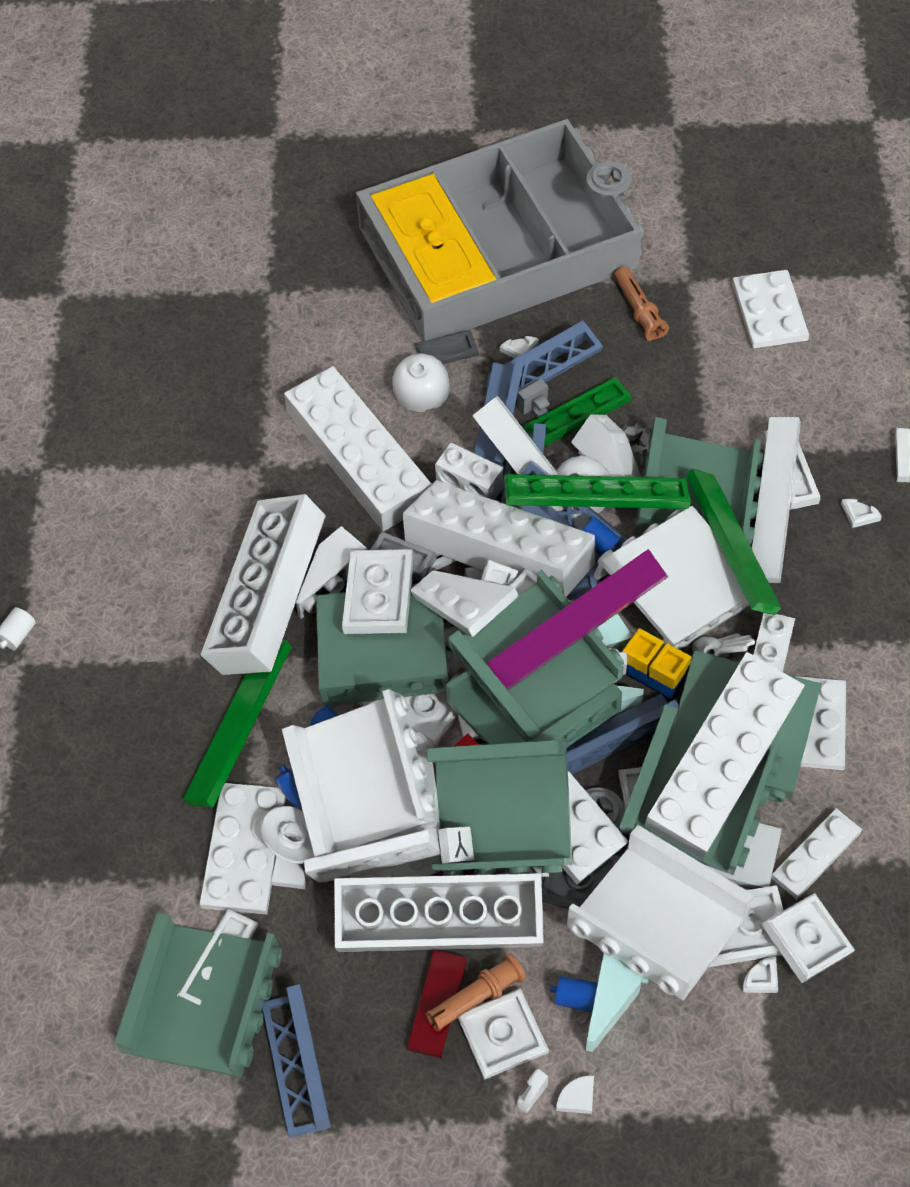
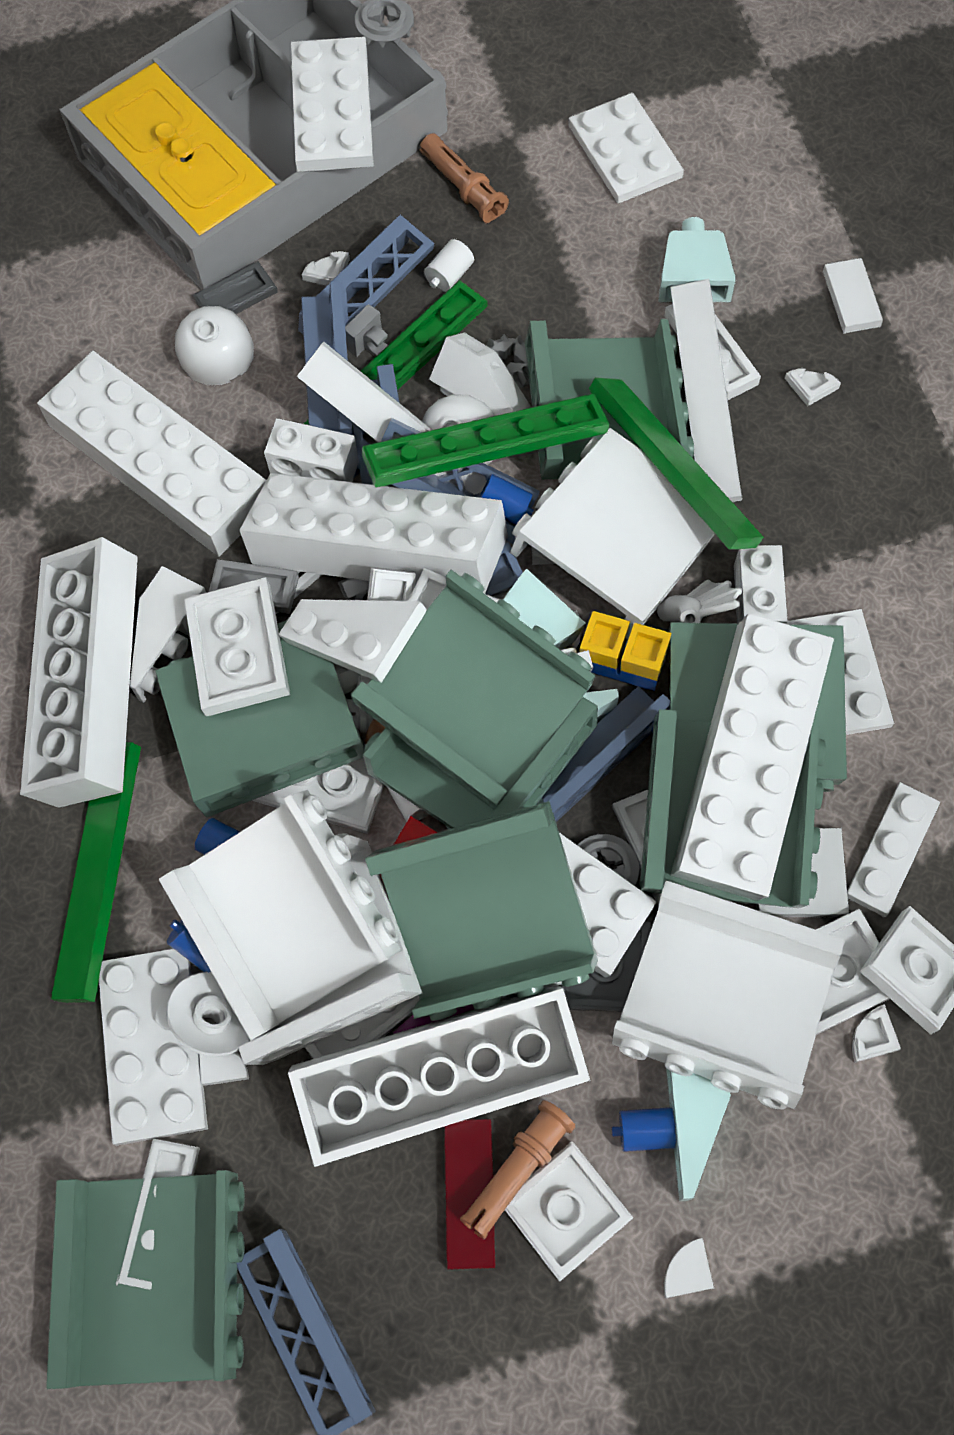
camera: 15 degrees left, 10 degrees up
(456, 844) = (437, 975): white tile -> none
(537, 1084) = (631, 1278): white tile -> none
(553, 231) = (331, 104): none -> white plate
(578, 619) = (519, 627): magenta tile -> none
(610, 364) = (449, 265): none -> white piece
(797, 399) = (696, 256): none -> light aqua torso

